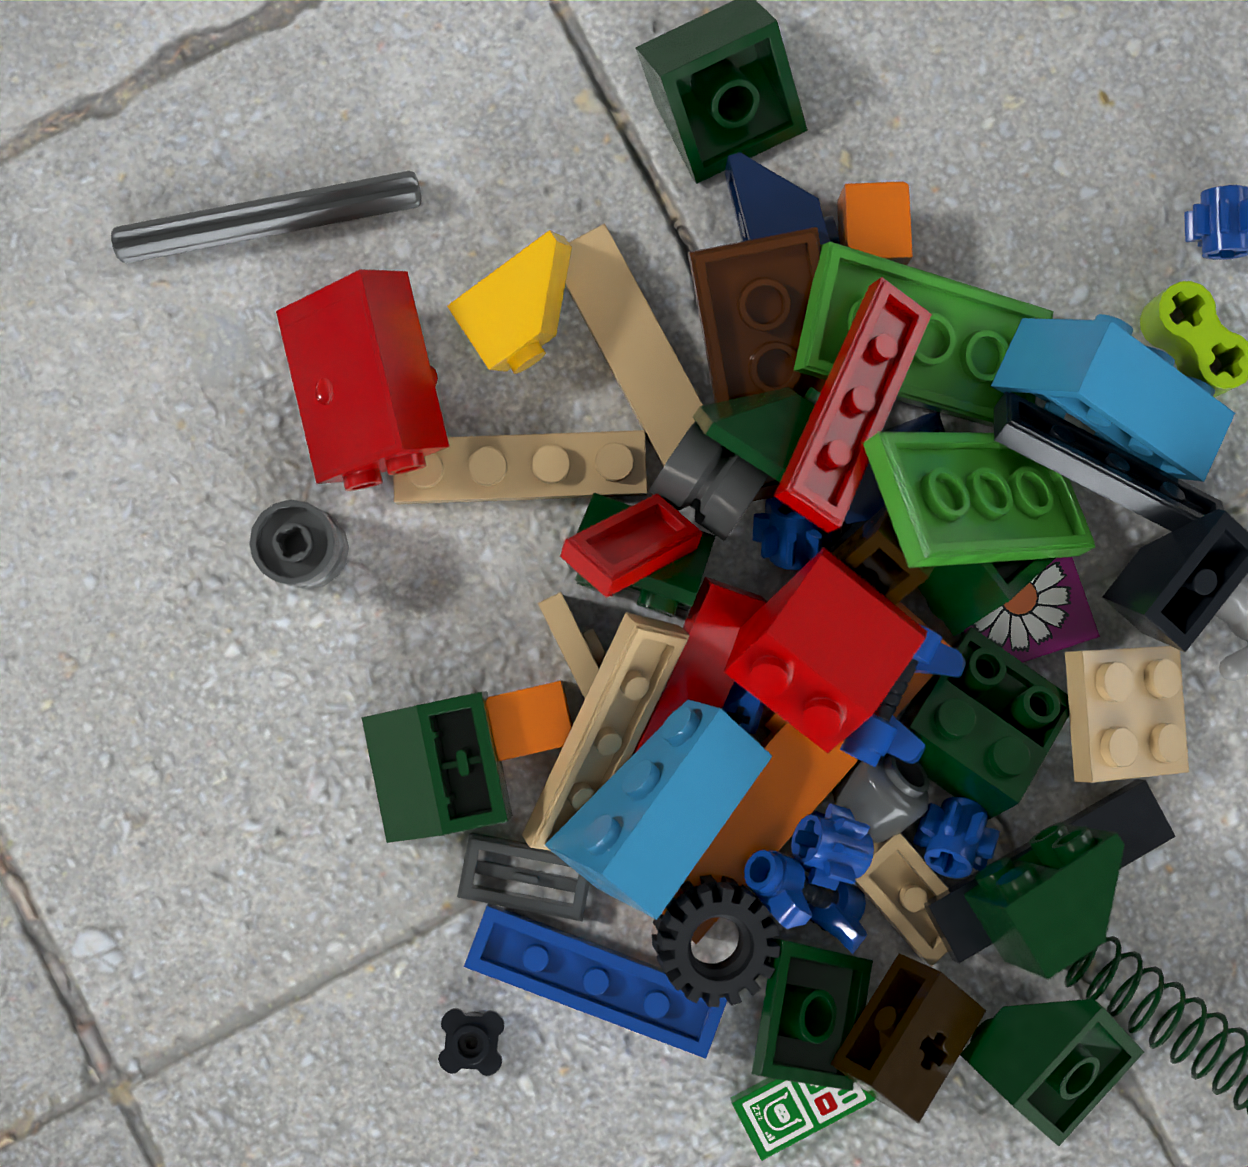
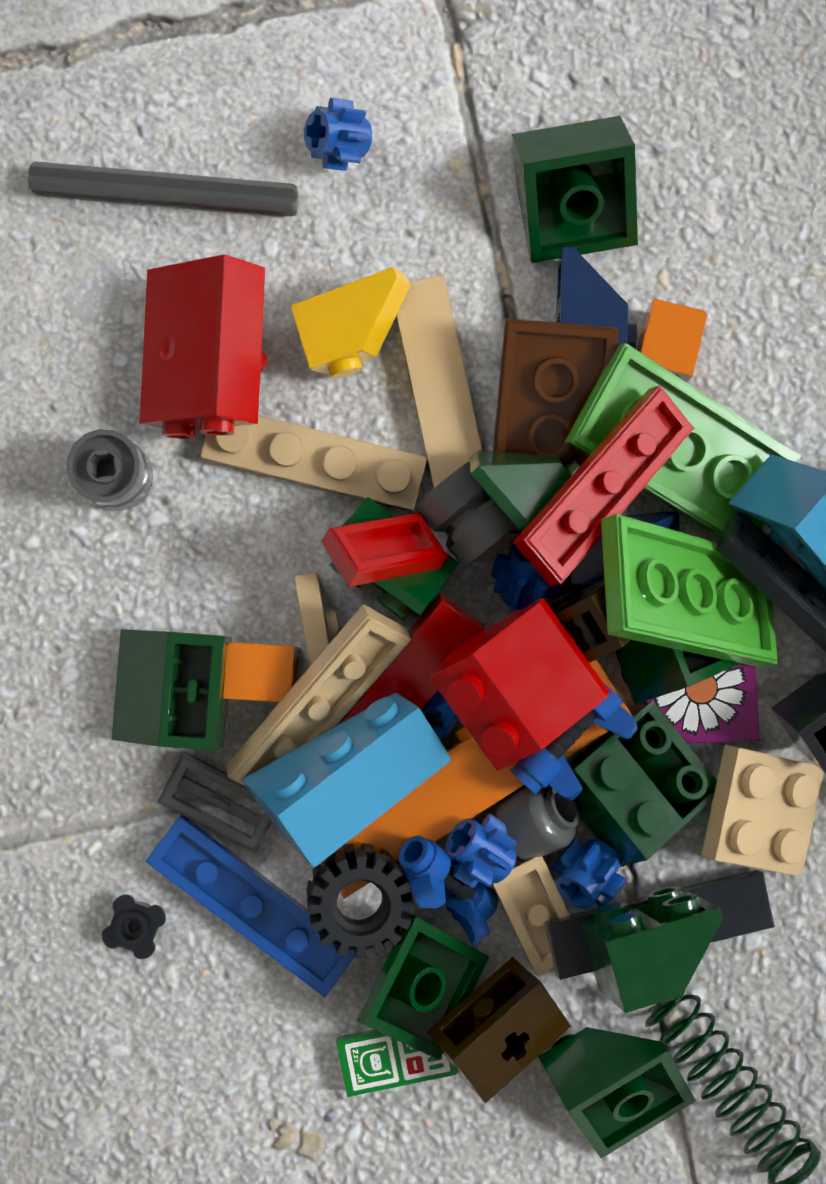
camera: 20 degrees right, 0 degrees up
(443, 101) = (338, 134): none -> blue gear

